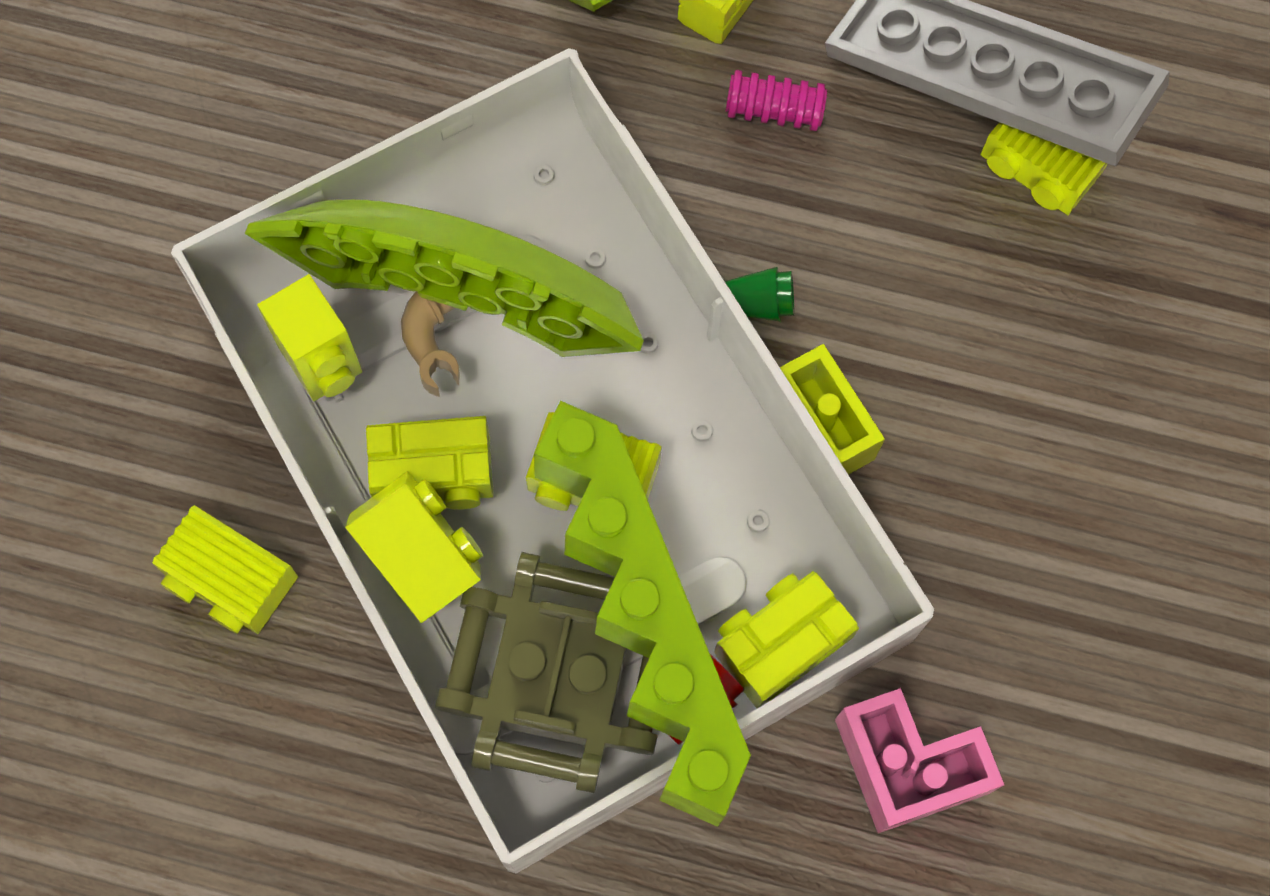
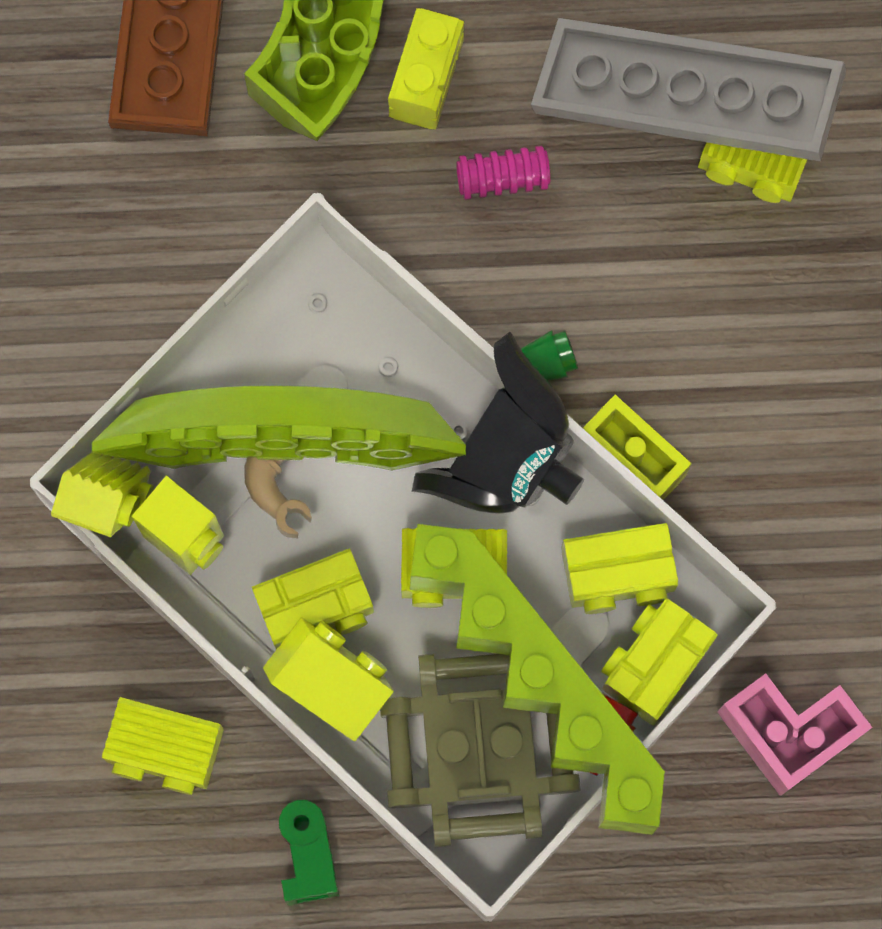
camera: 15 degrees left, 5 degrees up
(234, 277) = (101, 493): none -> neon yellow brick
(340, 738) = (307, 834): none -> green leg
(695, 359) = (513, 447): none -> black torso
(773, 525) = (619, 568): none -> neon yellow brick

